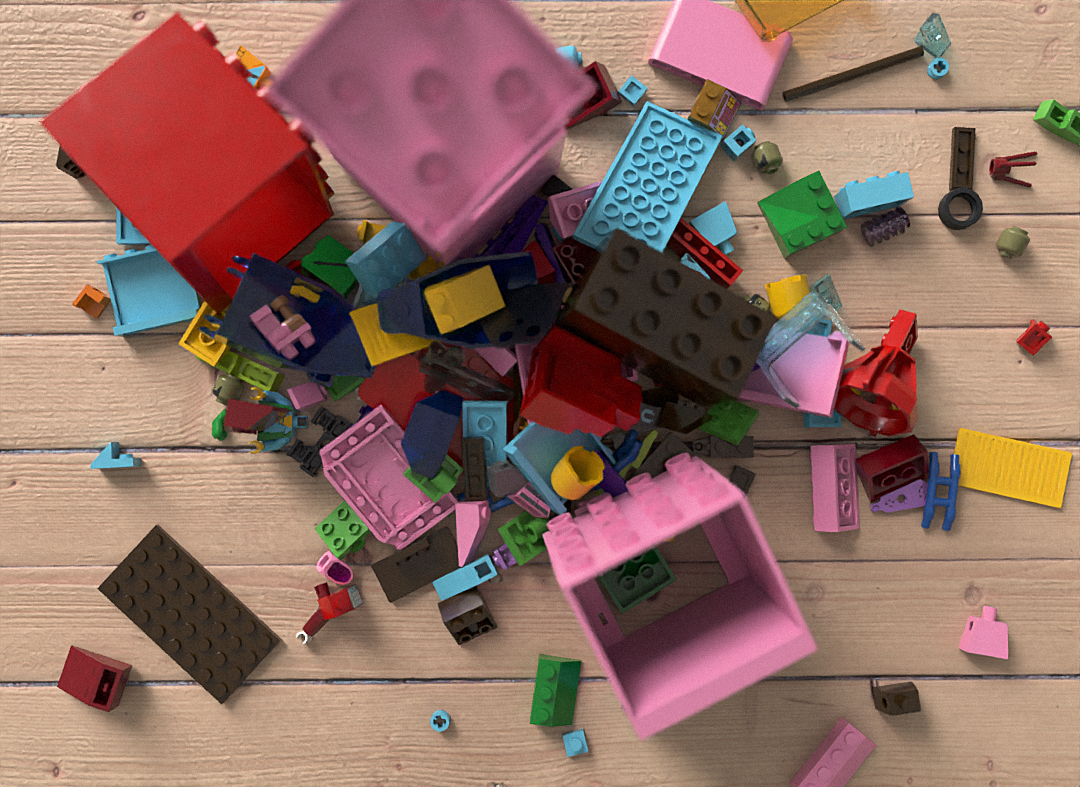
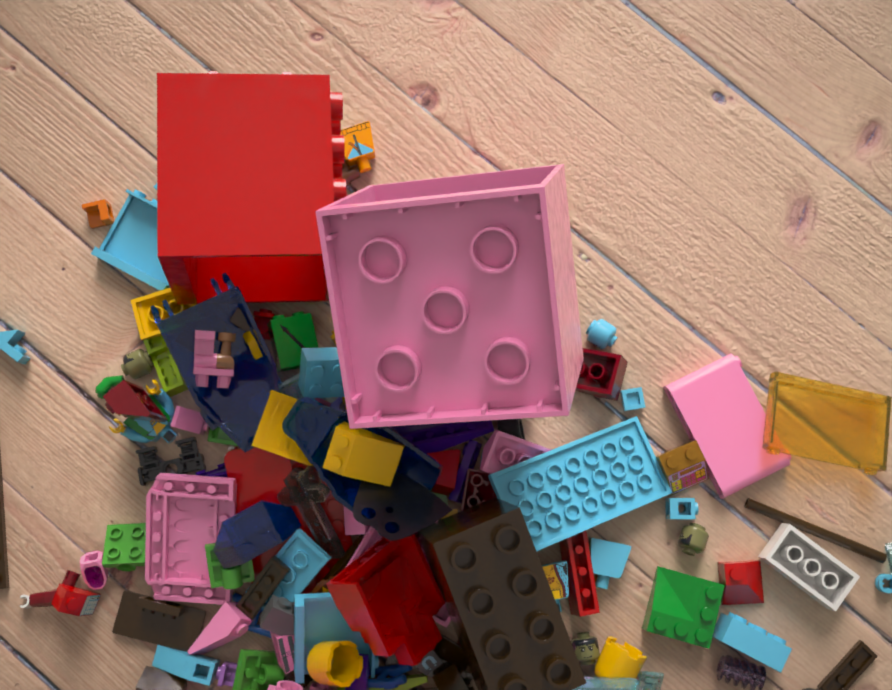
camera: 35 degrees right, 5 degrees down
(277, 282) = (239, 320): none -> dark brown slope
(830, 159) = (741, 582): none -> red slope
(870, 103) = (808, 566): none -> white brick

